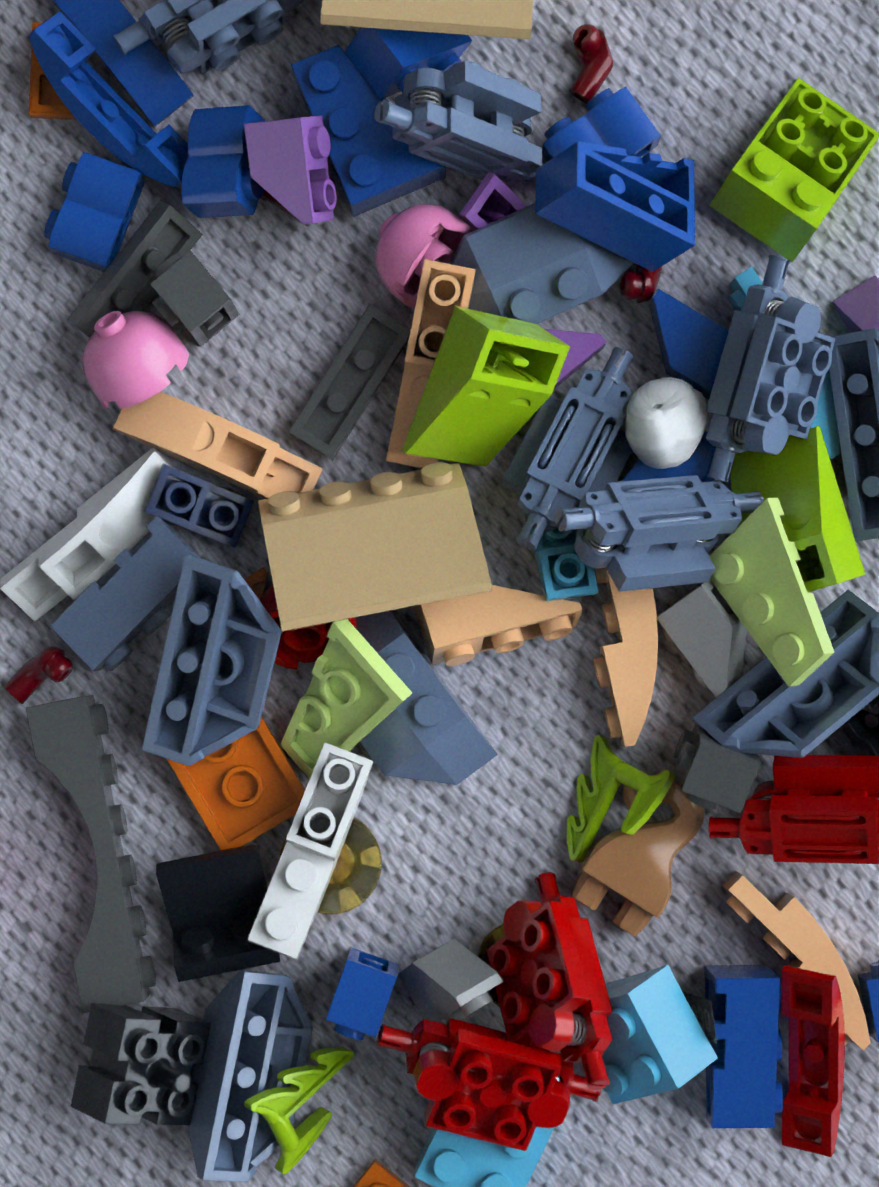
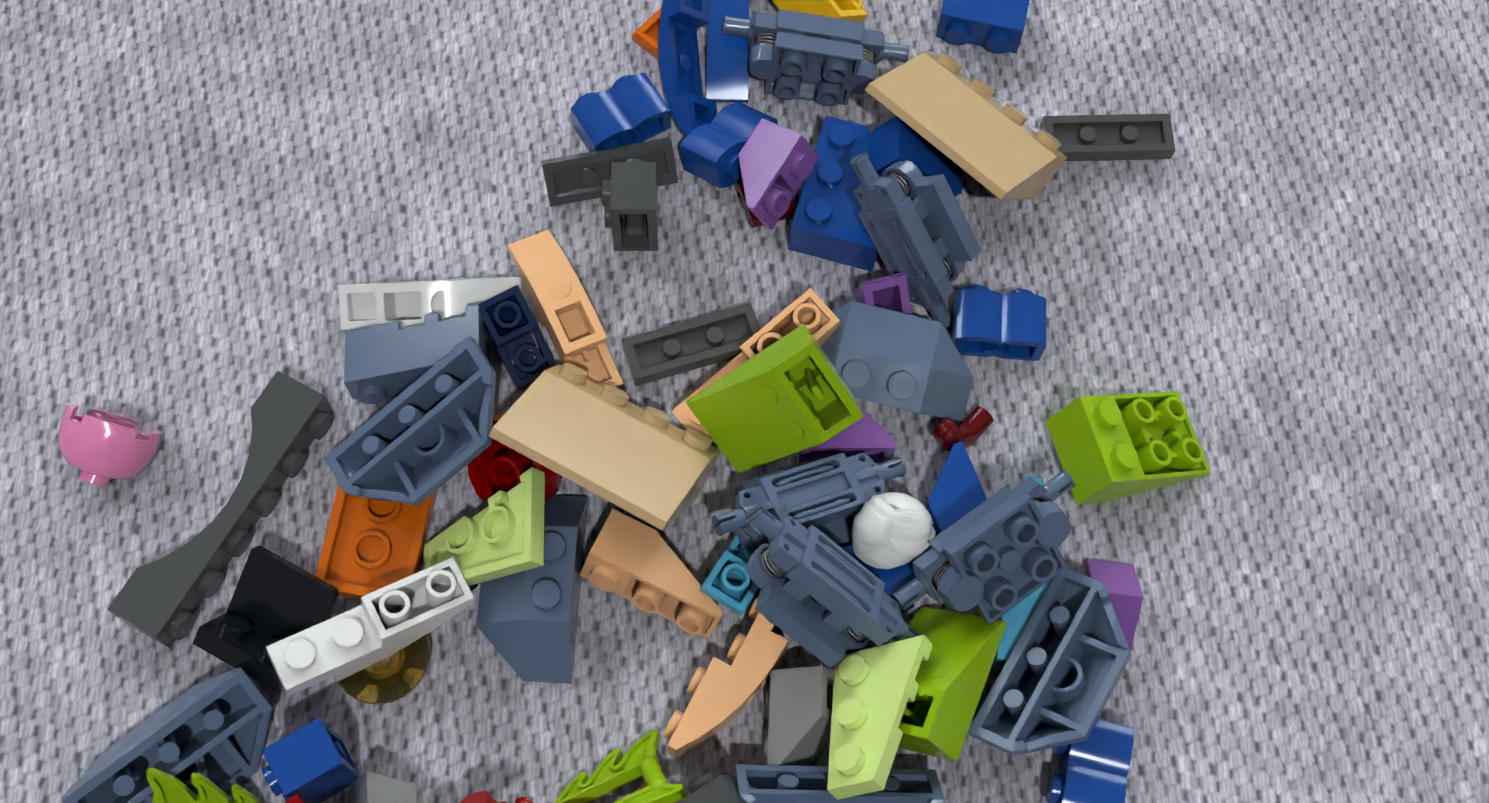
camera: 35 degrees right, 20 degrees down
(34, 672) = (319, 362): dark red arm -> none
(131, 356) = (559, 205): bright pink cylinder -> none
(140, 1065) = (107, 681): black brick -> none
(411, 237) = (822, 274): bright pink cylinder -> none
(594, 60) = (1038, 272): dark red arm -> none
(621, 201) = (980, 354): blue wedge -> none

